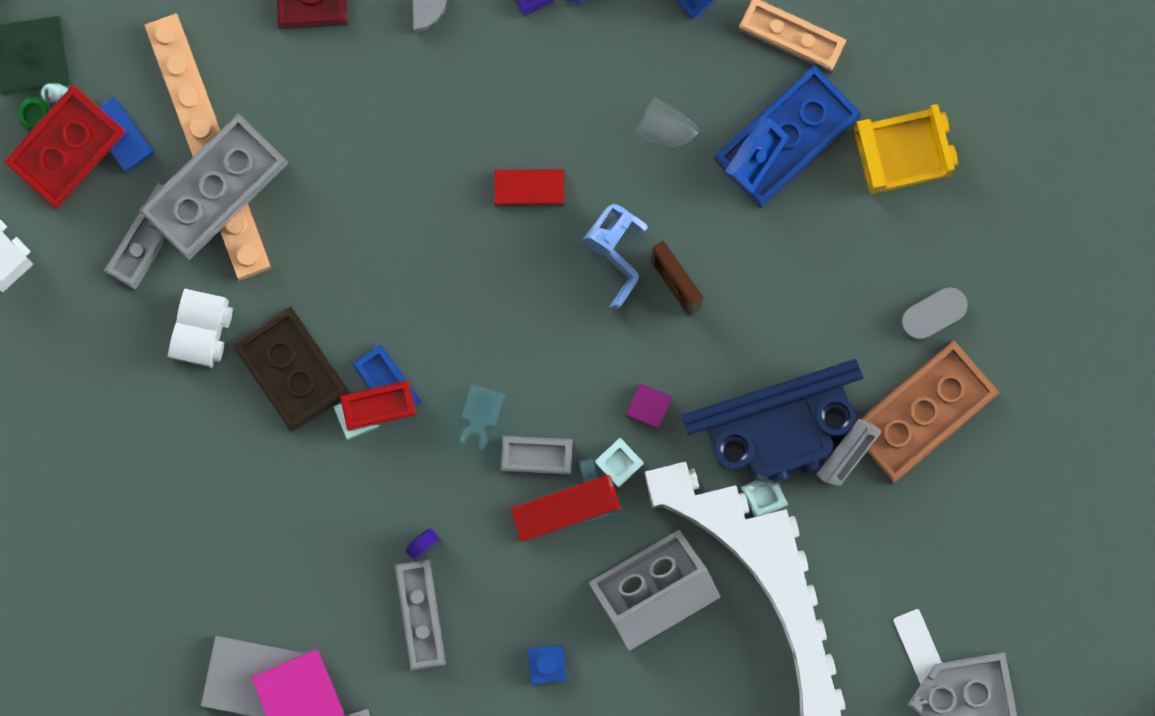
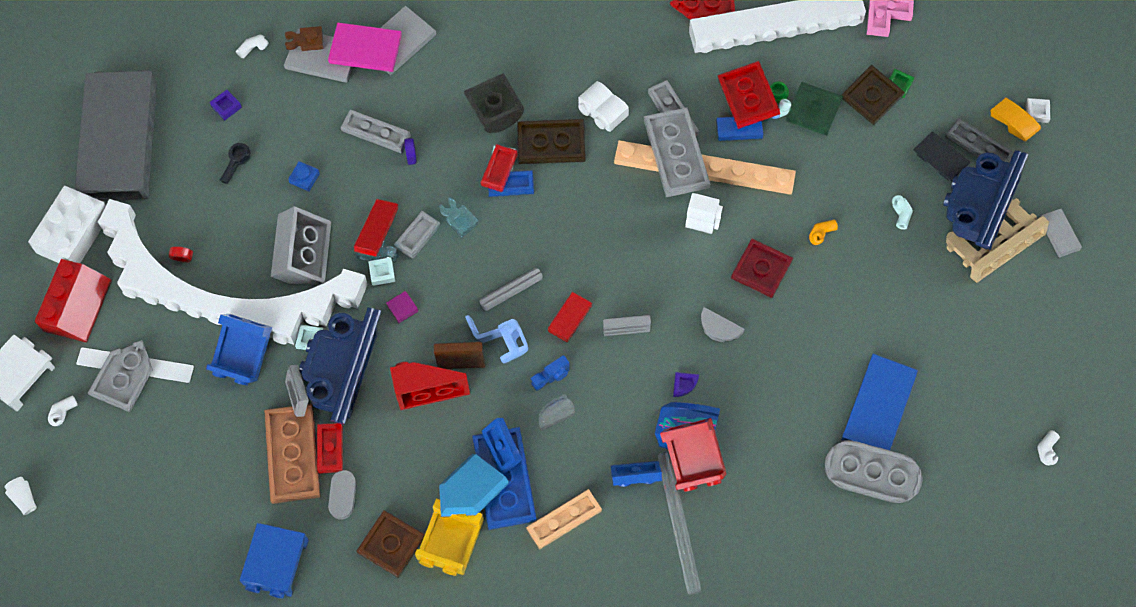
camera: 125 degrees right, 15 degrees down
(287, 96) = (703, 213): none -> white brick
(289, 468) = (495, 104): none -> clear smoke brick
(499, 106) = (626, 325): none -> light grey tile
(538, 284) = (511, 289): none -> light grey axle
(615, 155) = (555, 371): none -> blue plate
(746, 302) = (425, 384): none -> red slope
(834, 158) = (470, 487): none -> dark azure tile
(843, 563) = (240, 349): none -> blue panel
(891, 366) = (329, 448): none -> red plate
(953, 216) = (391, 543): none -> reddish brown tile
(1067, 334) = (273, 560): none -> blue panel

